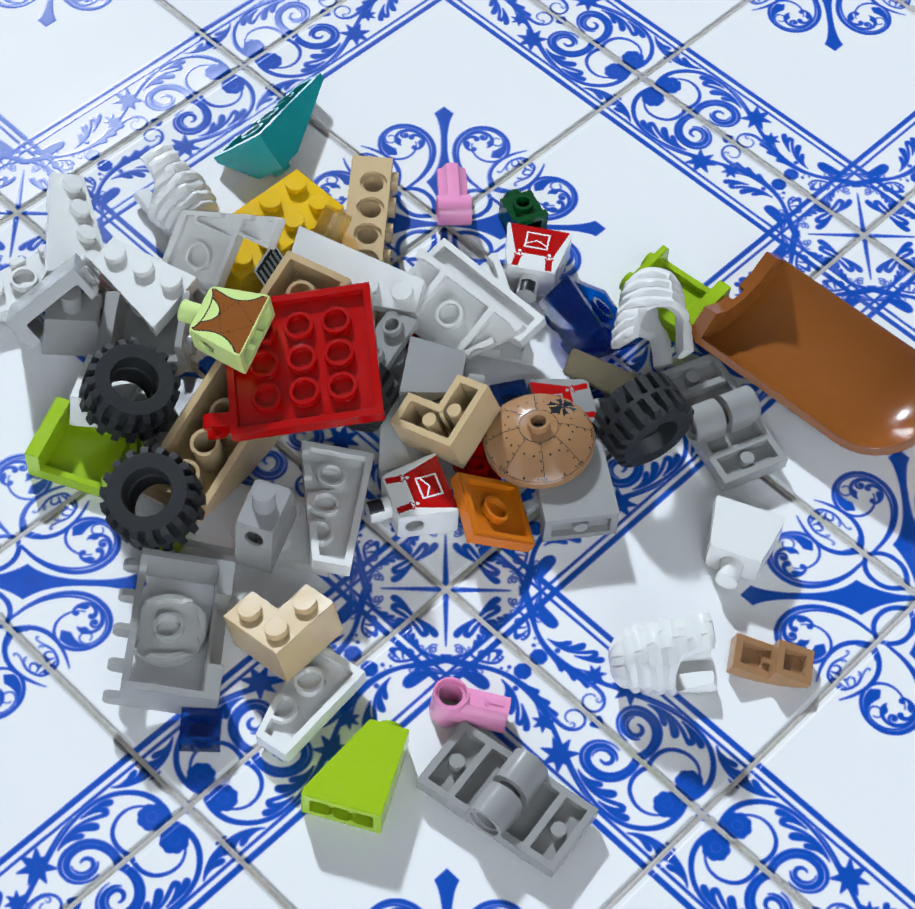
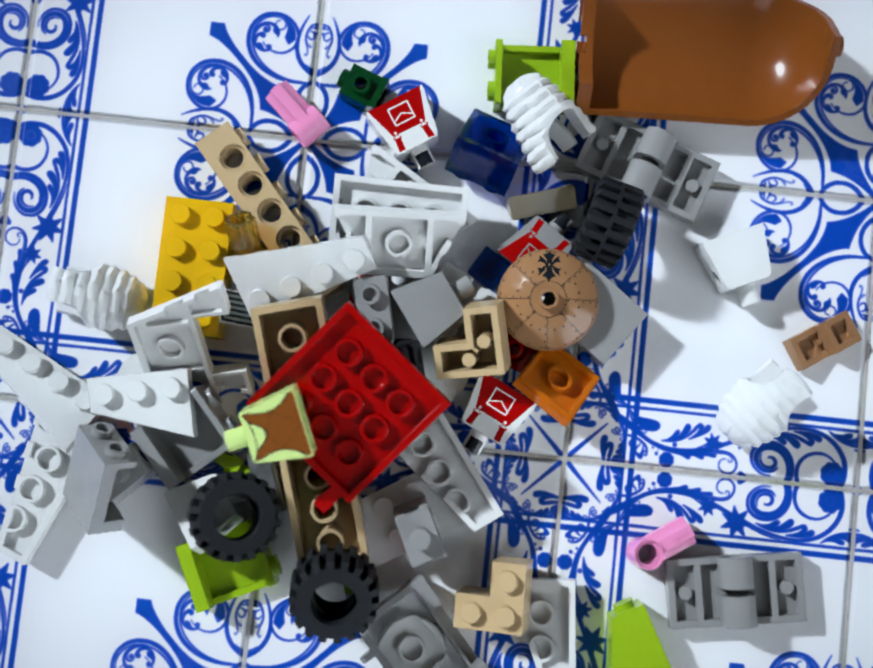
camera: 40 degrees left, 30 degrees up
(275, 135) = (114, 171): teal wedge -> none

